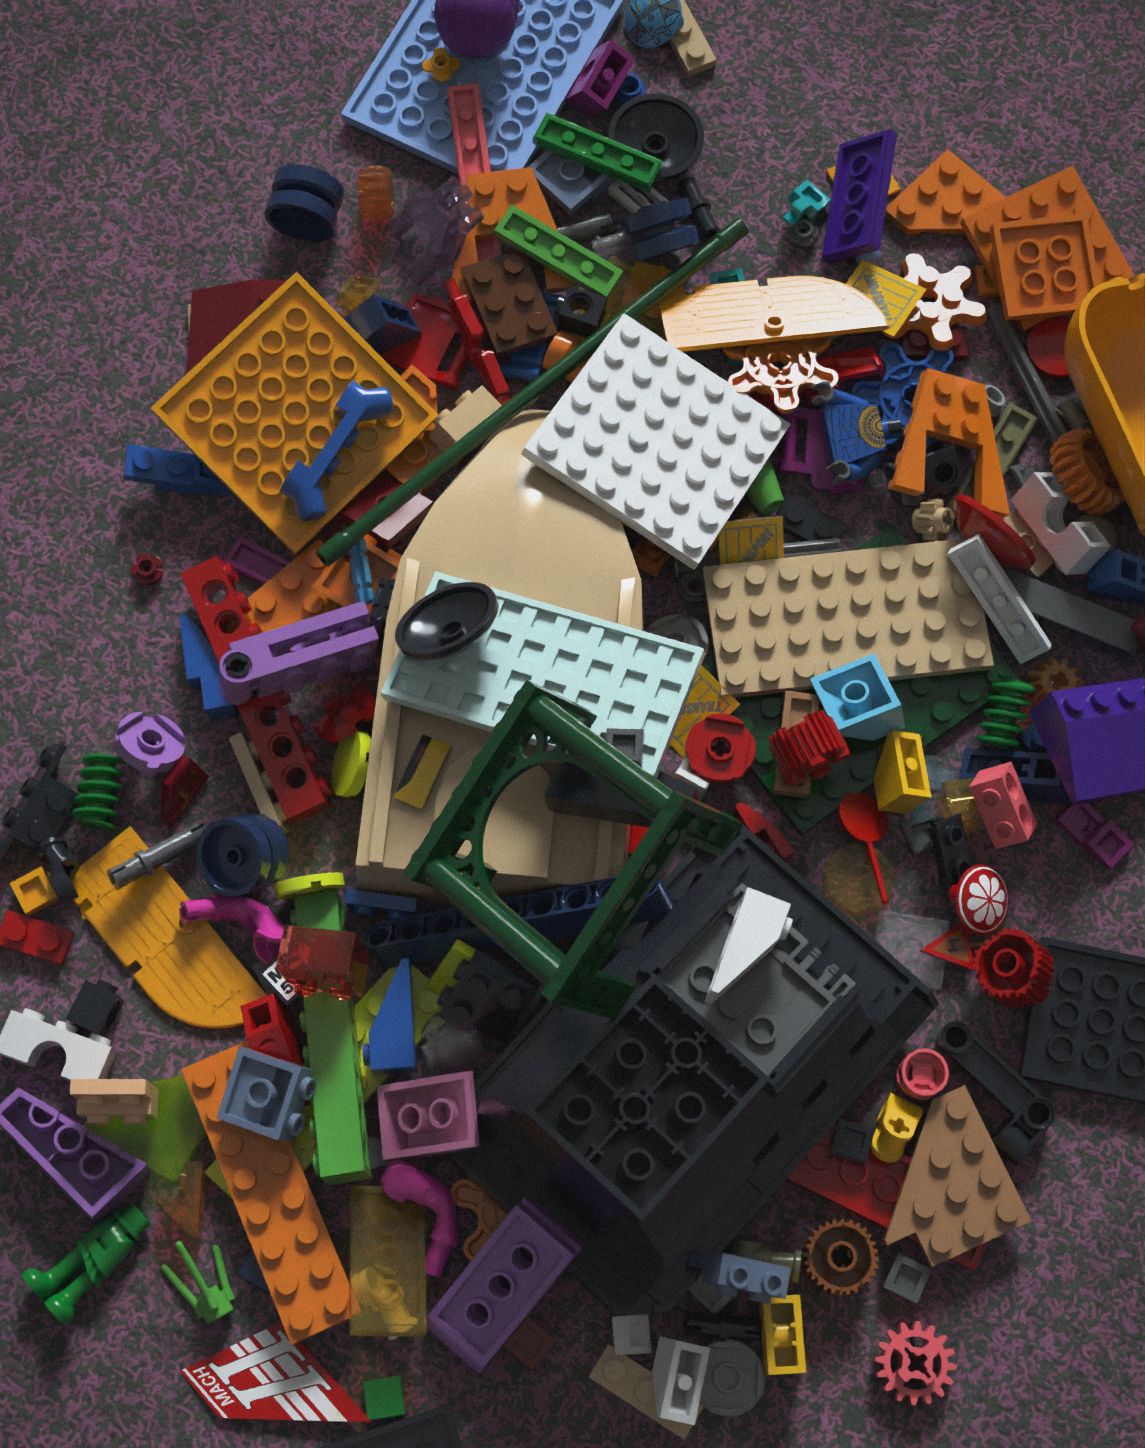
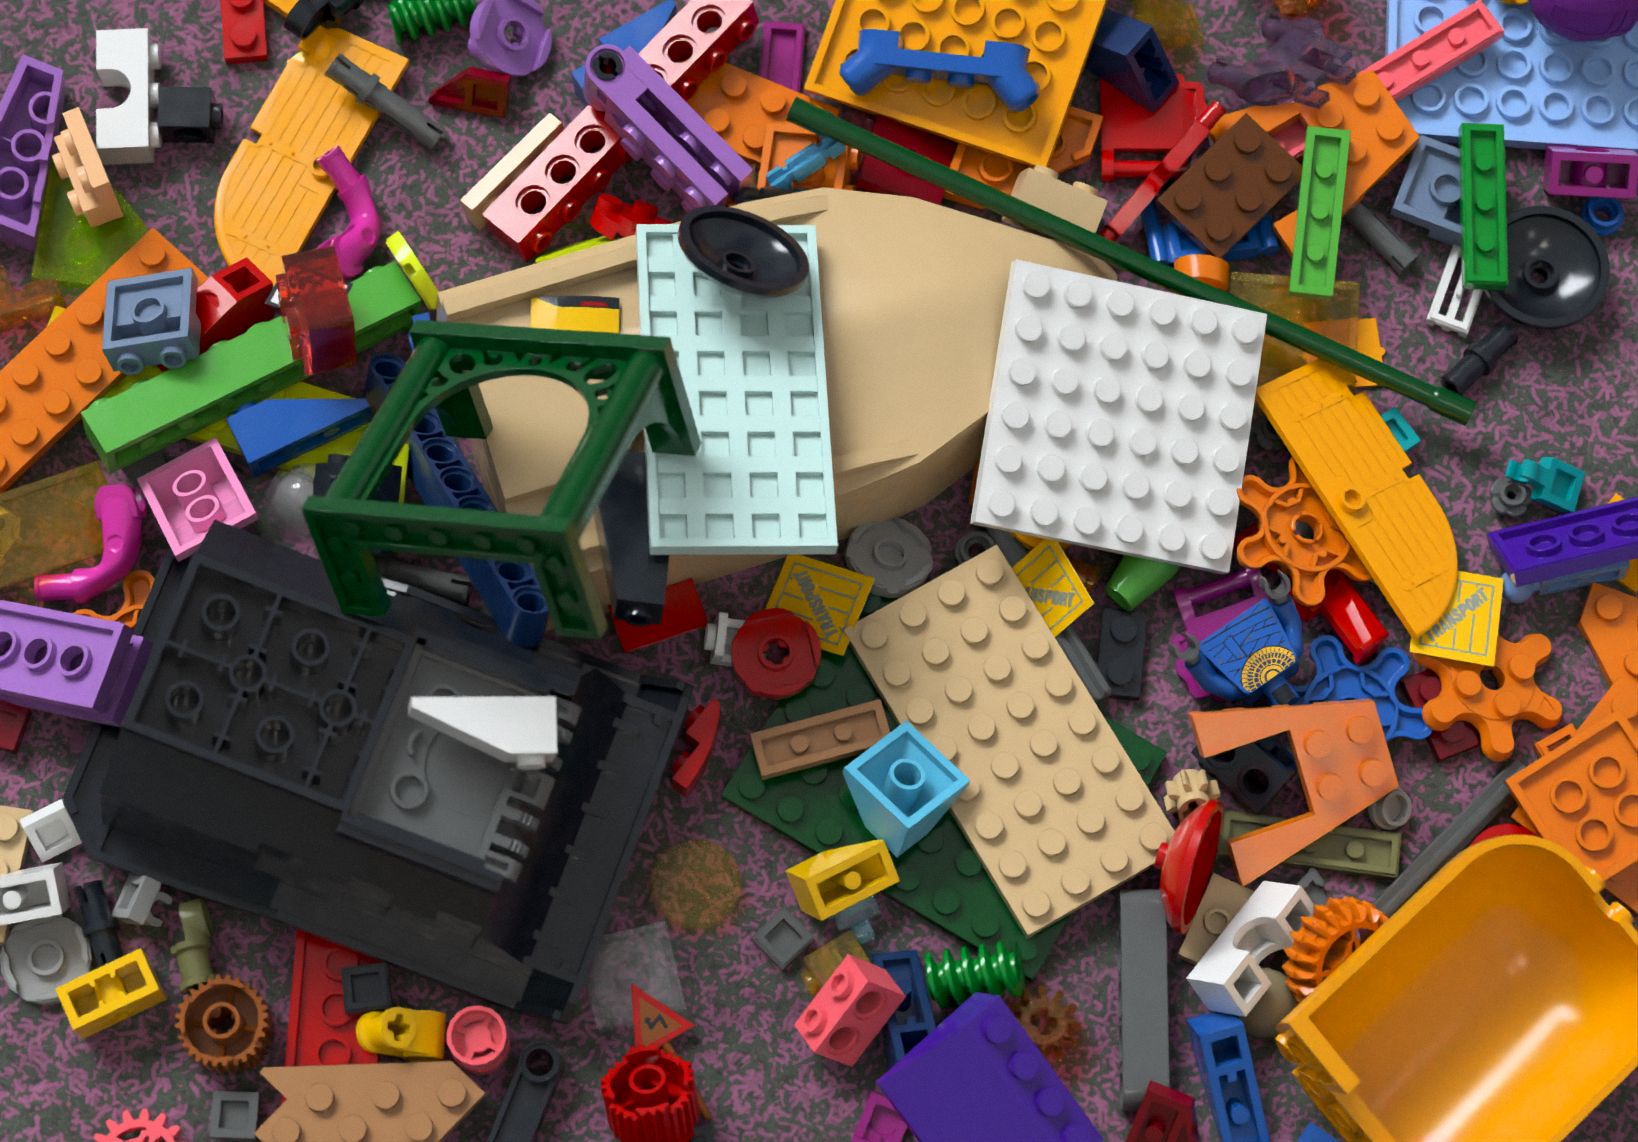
camera: 65 degrees right, 0 degrees up
(242, 854) = (419, 184): dark blue wheel -> none
(579, 299) = (1259, 291): black brick -> none
(610, 244) = (1377, 277): clear pin -> none
(628, 742) = (670, 501): dark grey tile -> none
(660, 232) = (1417, 313): dark blue wheel -> none
(737, 1273) = (150, 908): sand blue plate -> none
(808, 748) = (805, 742): red brick -> none
(866, 824) = (761, 864): red piece -> none
(954, 855) = (768, 974): black hinge -> none
(980, 899) = (724, 1031): dish -> none
(999, 598) = (1114, 907): white plate -> none

